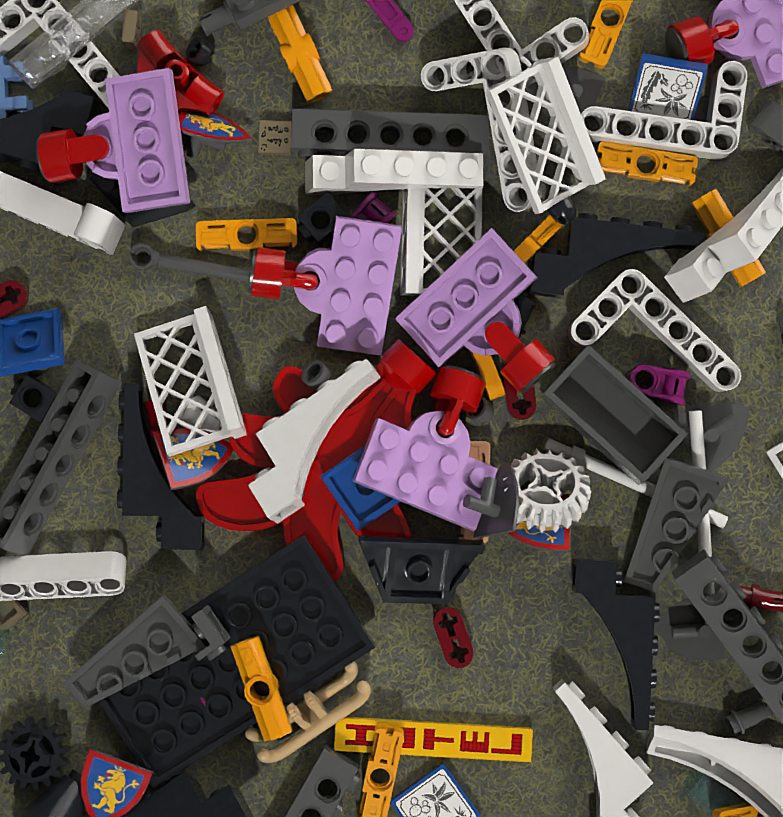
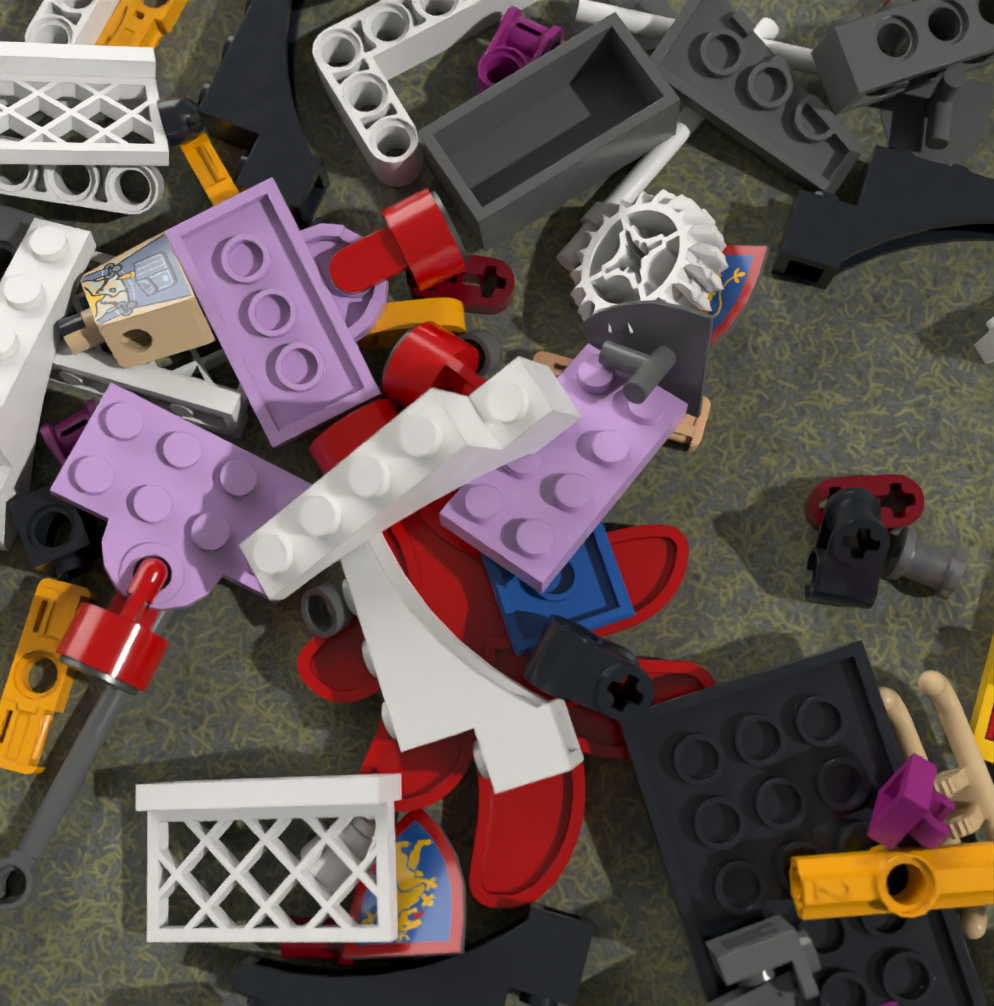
camera: 70 degrees left, 10 degrees down
(297, 685) = (911, 806): none -> magenta tile
(321, 514) = (580, 666): none -> black piece
(391, 400) = (407, 465): none -> white arch
(418, 567) = (728, 527): black wing -> none
(422, 632) = (848, 551): none -> black piece
(429, 675) = (926, 563): none -> flat silver bush
(449, 226) = (139, 307): none -> torso

